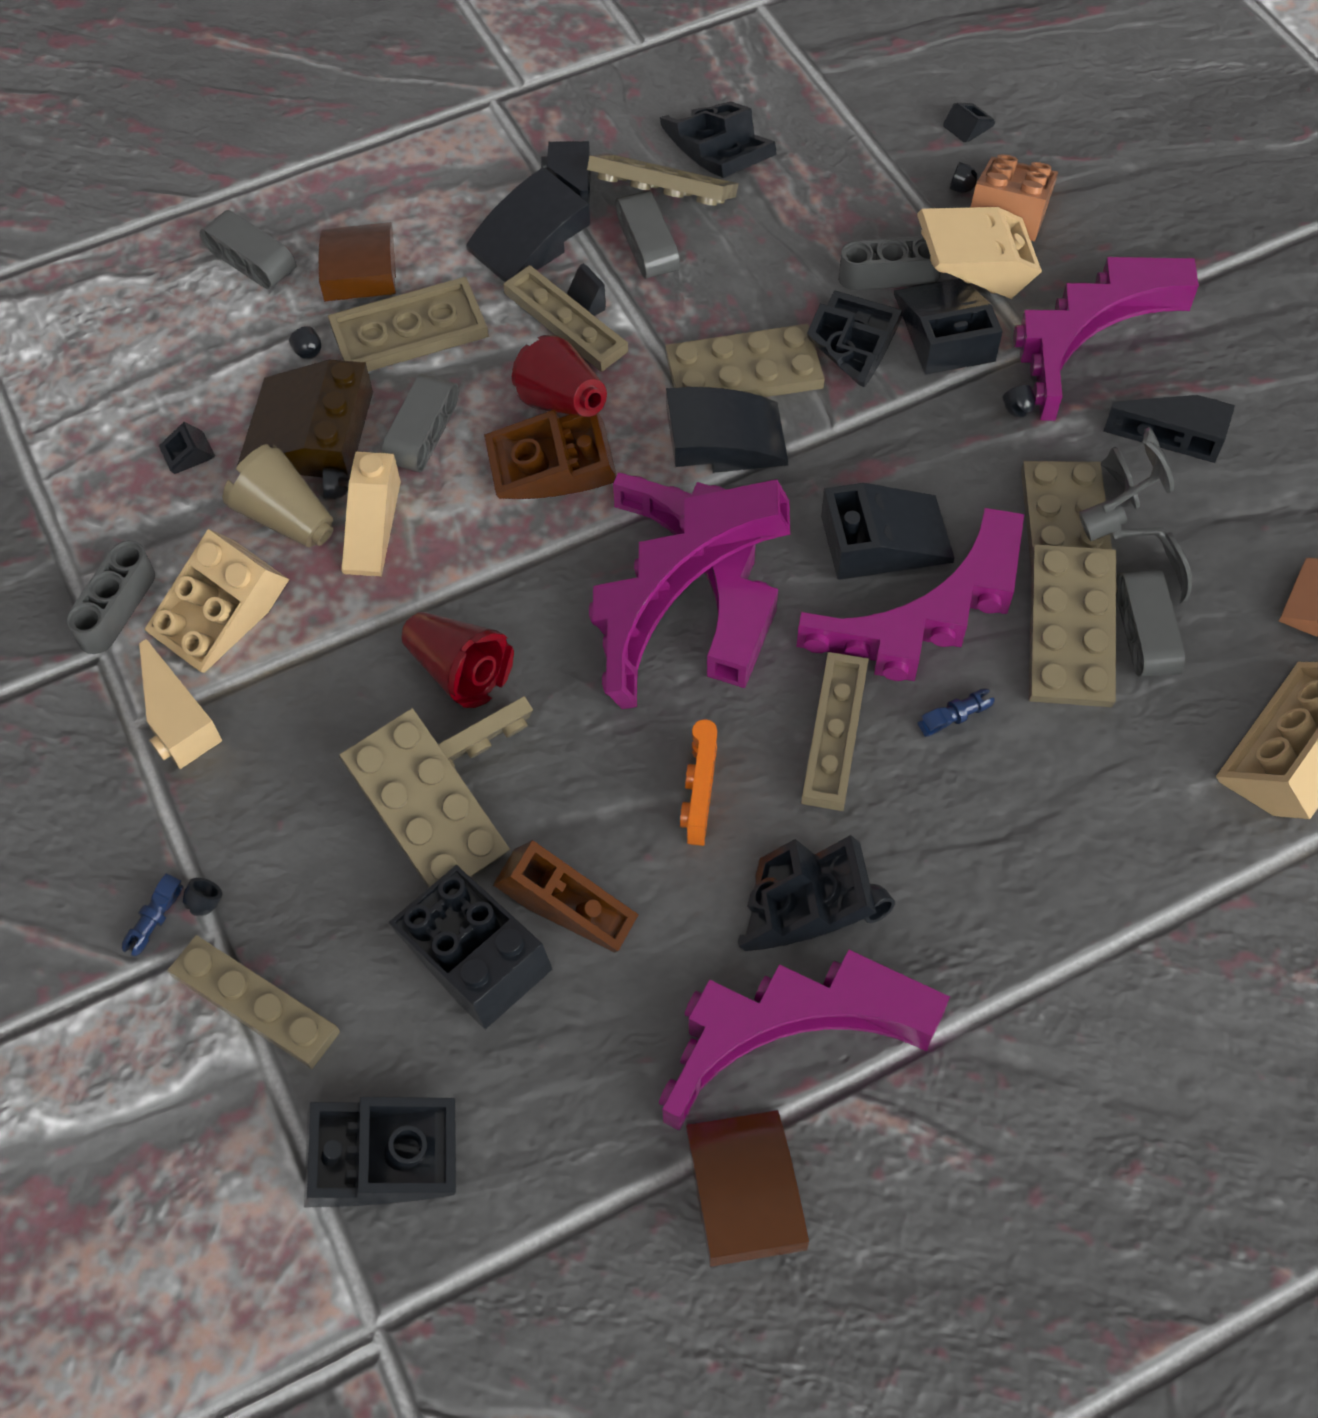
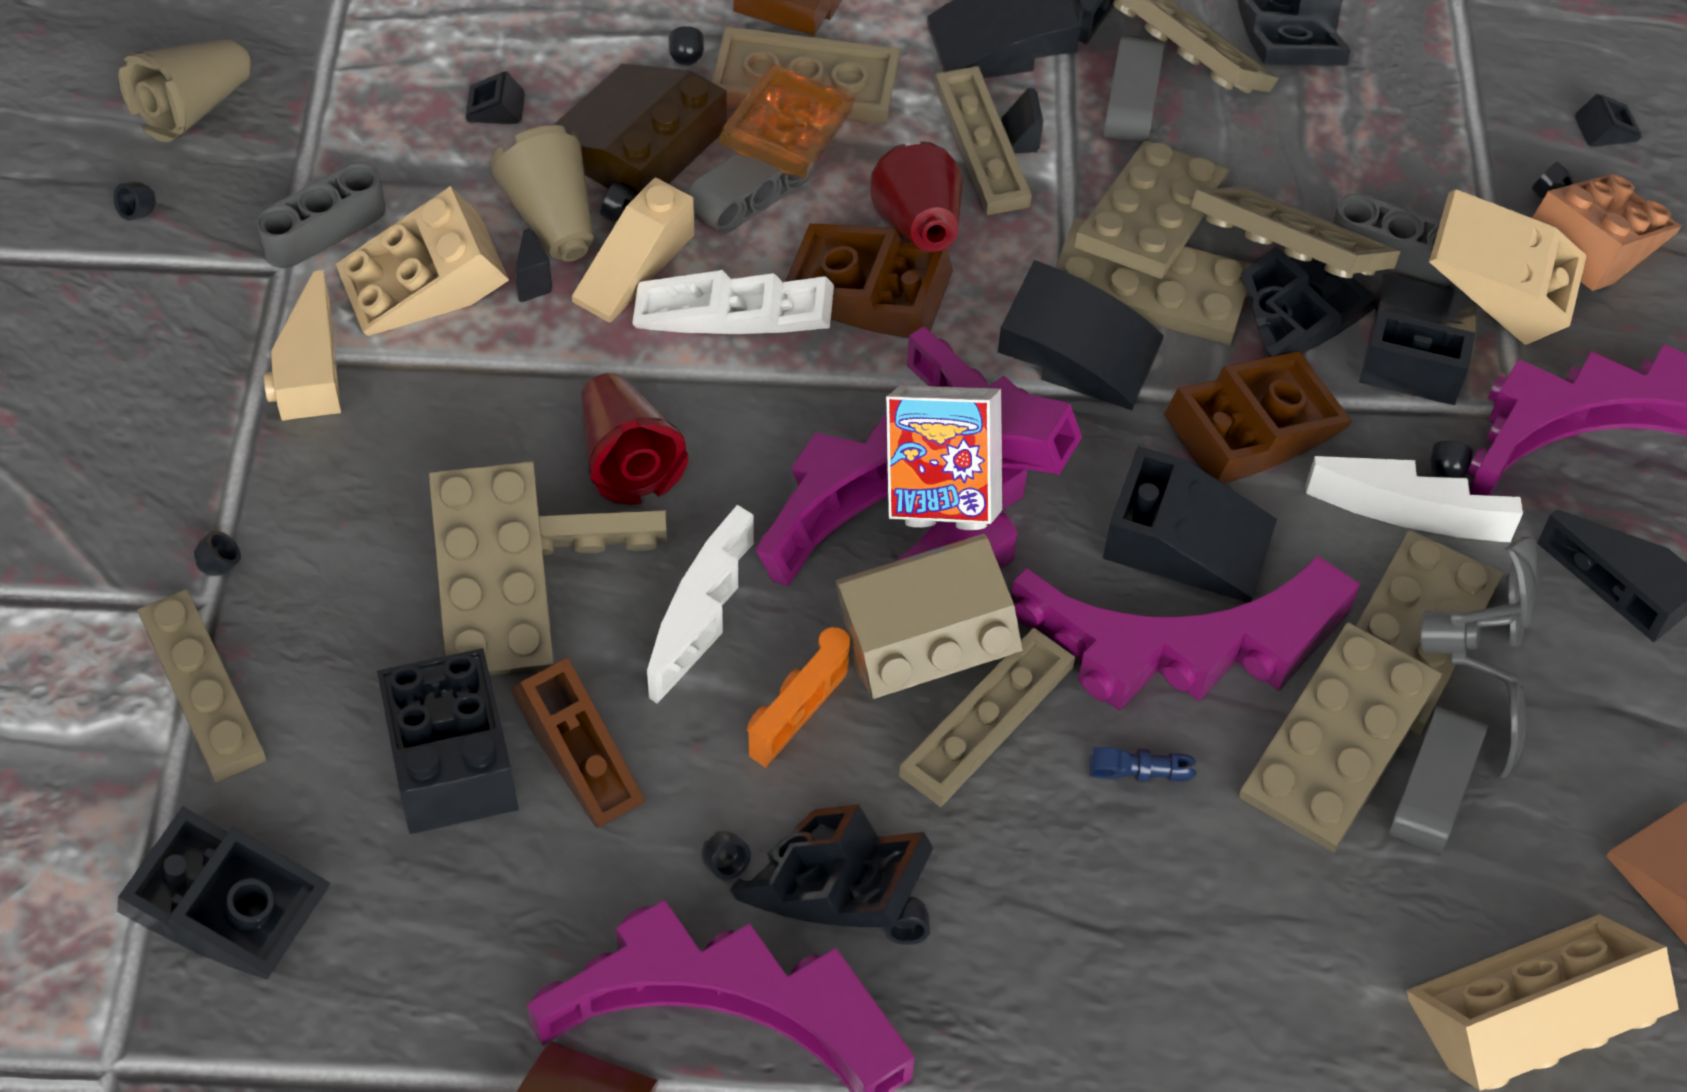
camera: 25 degrees right, 5 degrees down
(162, 899) = (180, 537): dark blue piece -> none
(303, 561) = (532, 268): none -> black slope
(426, 365) = (787, 121): none -> clear orange plate
(466, 522) = (733, 306): none -> white slope
(589, 758) = (696, 609): none -> white slope
(709, 558) = (944, 455): none -> brick
(717, 315) = (1148, 209): none -> dark tan plate
(721, 923) = (735, 848): none -> black hinge
(759, 680) = (928, 616): none -> dark tan slope
(838, 286) = (1300, 232): none -> dark tan plate
(875, 430) = (1255, 416): none -> reddish brown slope
(1004, 441) = (1396, 495): none -> white slope

